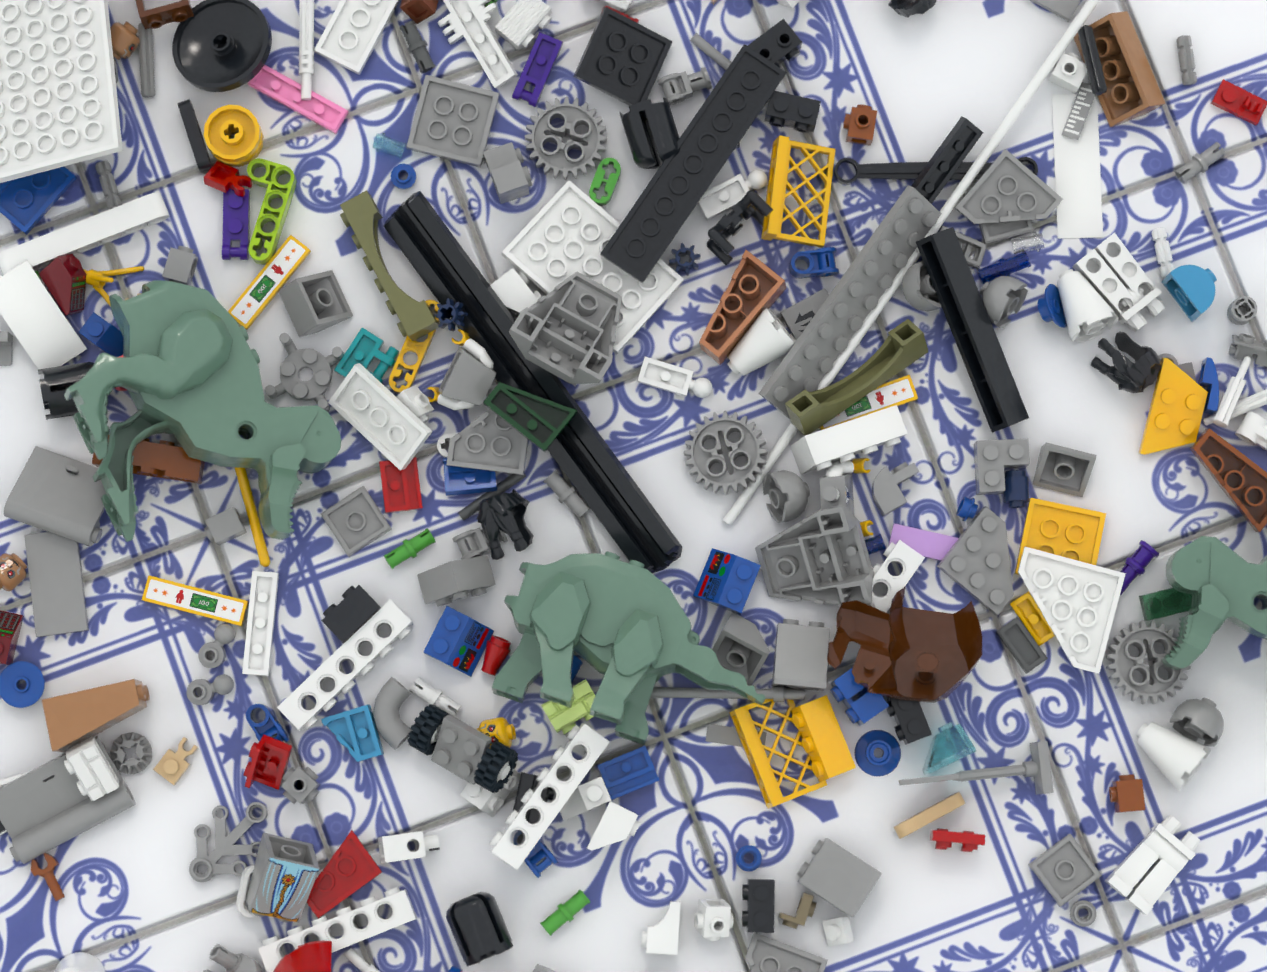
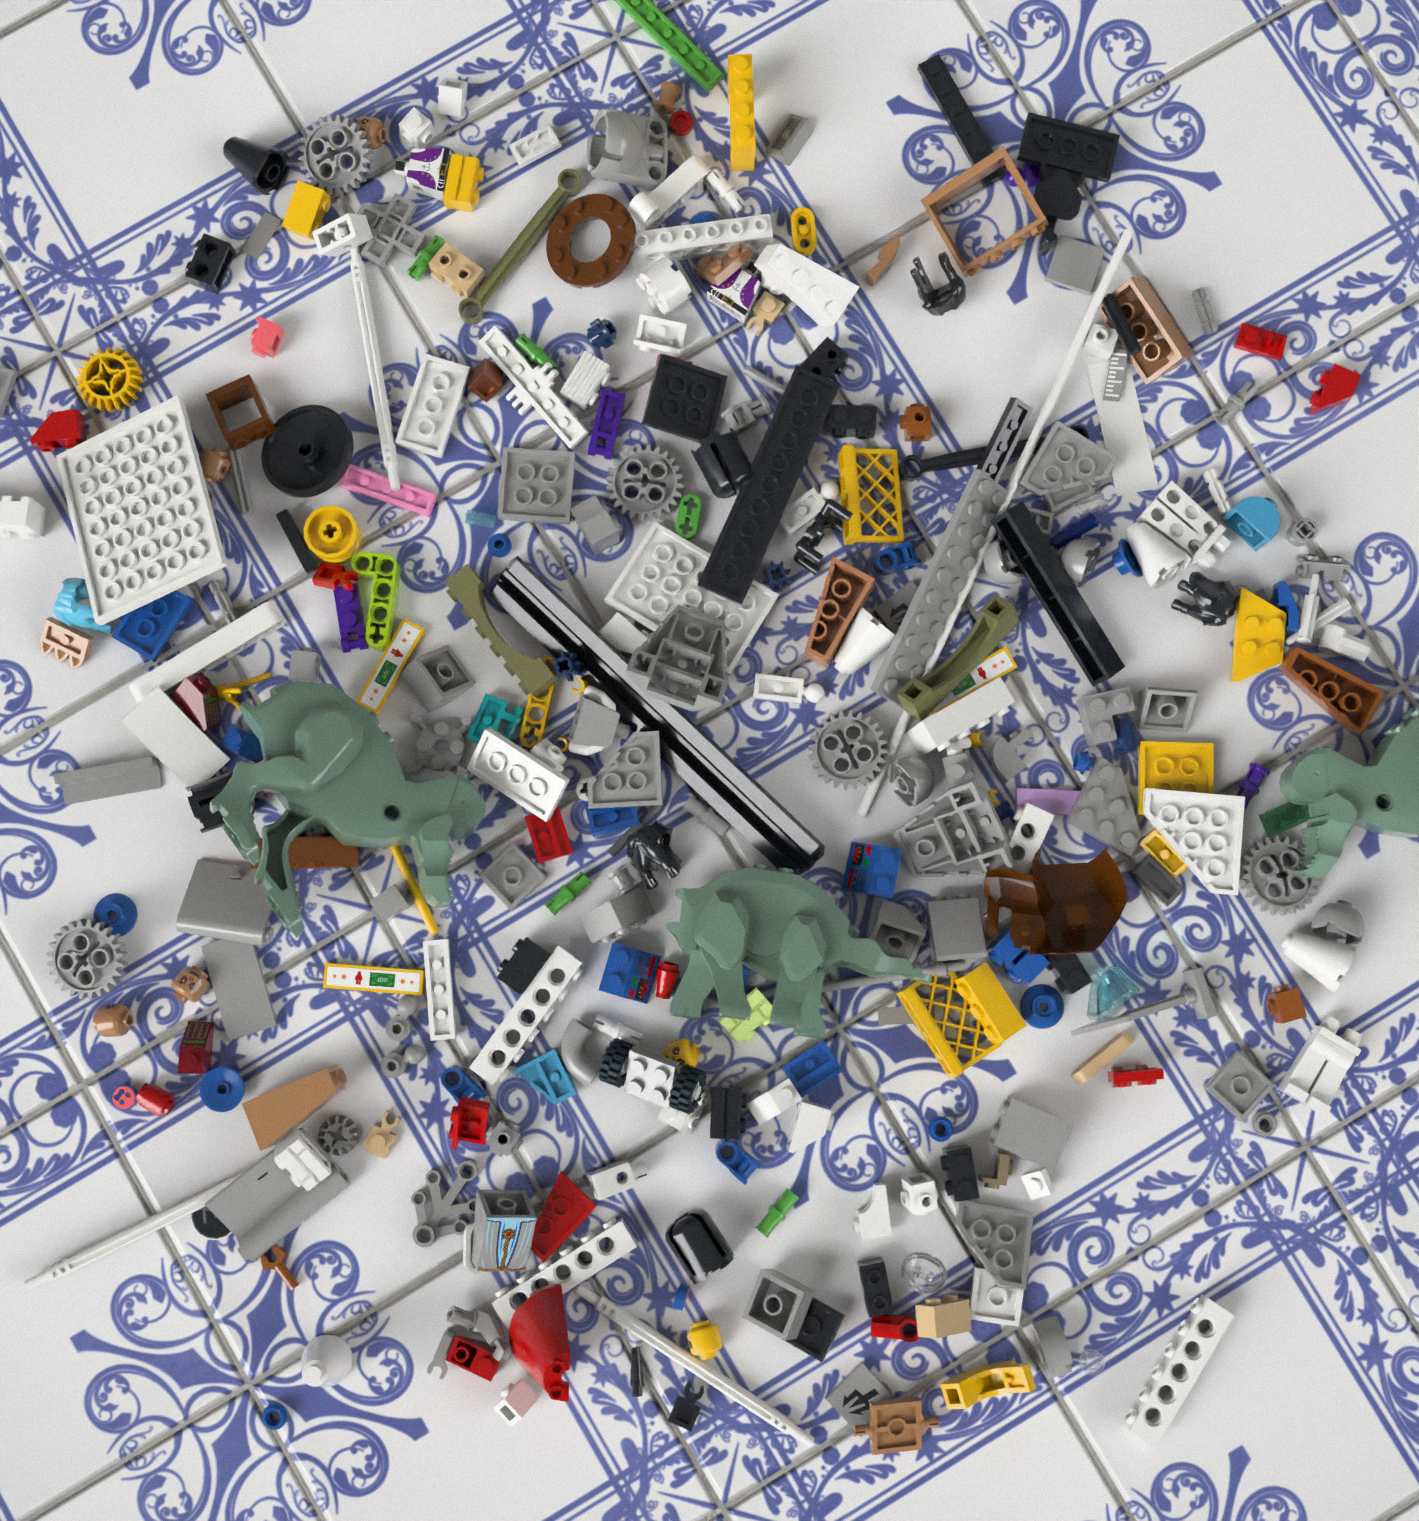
camera: 10 degrees left, 0 degrees up
(417, 47) = (491, 423): dark grey pin -> none
(530, 415) = (659, 747): dark green wedge -> none
(593, 745) = (722, 1168): white brick -> none

